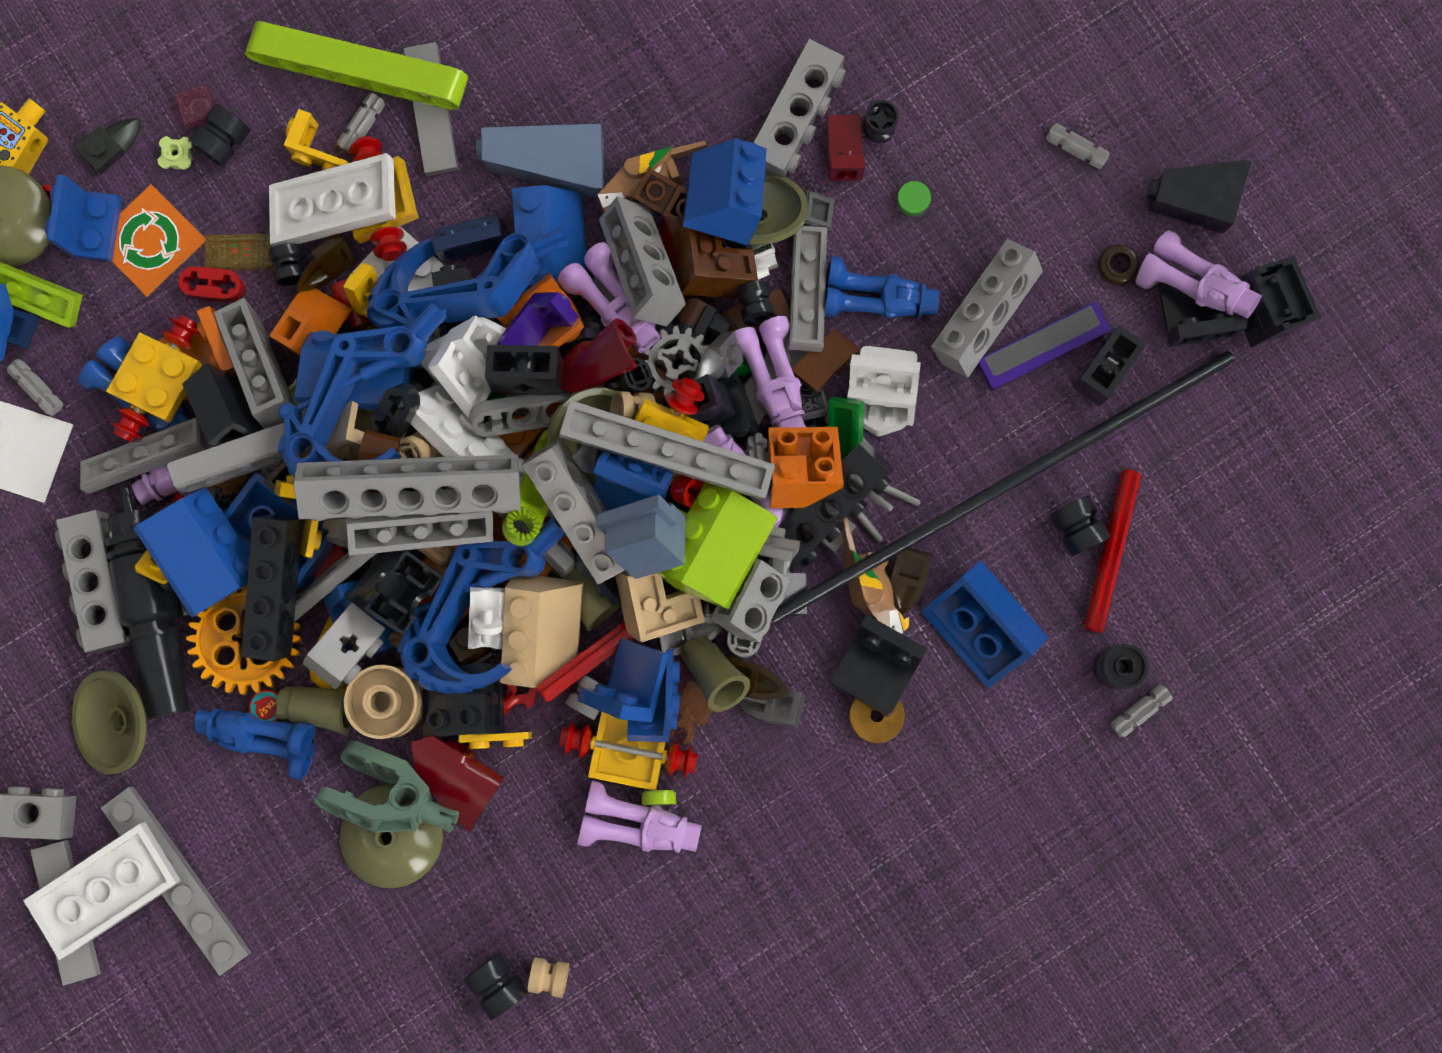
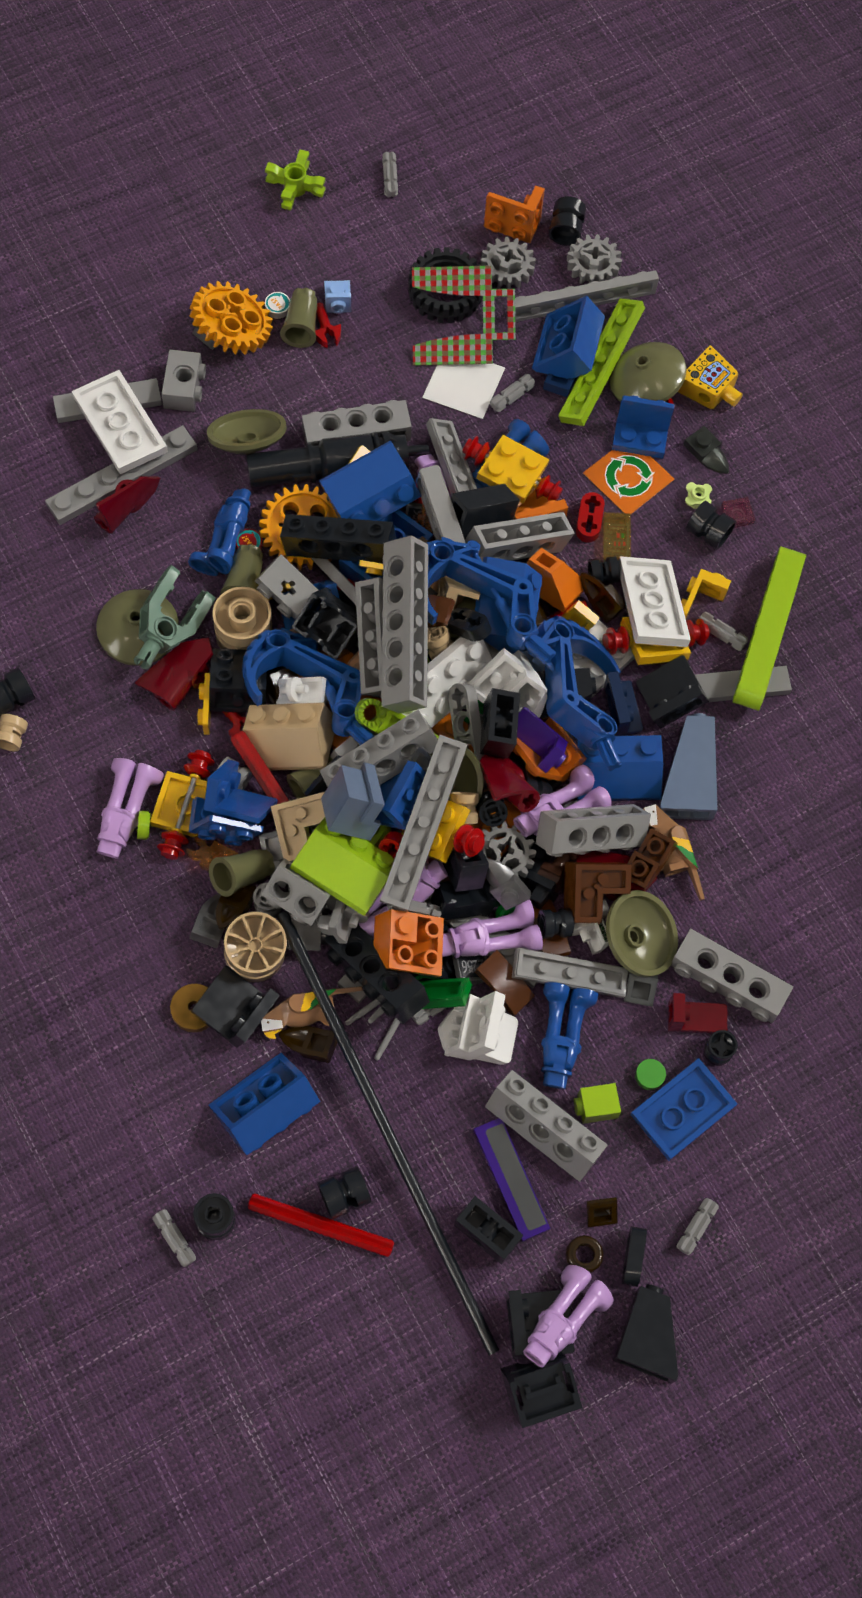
camera: 85 degrees right, 15 degrees down
(213, 865) = (127, 499): none -> dark red panel
(447, 179) = (671, 691): none -> black bracket
(726, 190) = (653, 899): blue slope -> none
(808, 648) = (255, 946): none -> tan wheel
(952, 161) = (683, 1109): none -> blue plate
(954, 253) = (597, 1103): none -> lime brick
(1071, 246) = (602, 1212): none -> dark brown slope
(1118, 211) = (634, 1256): none -> black beam

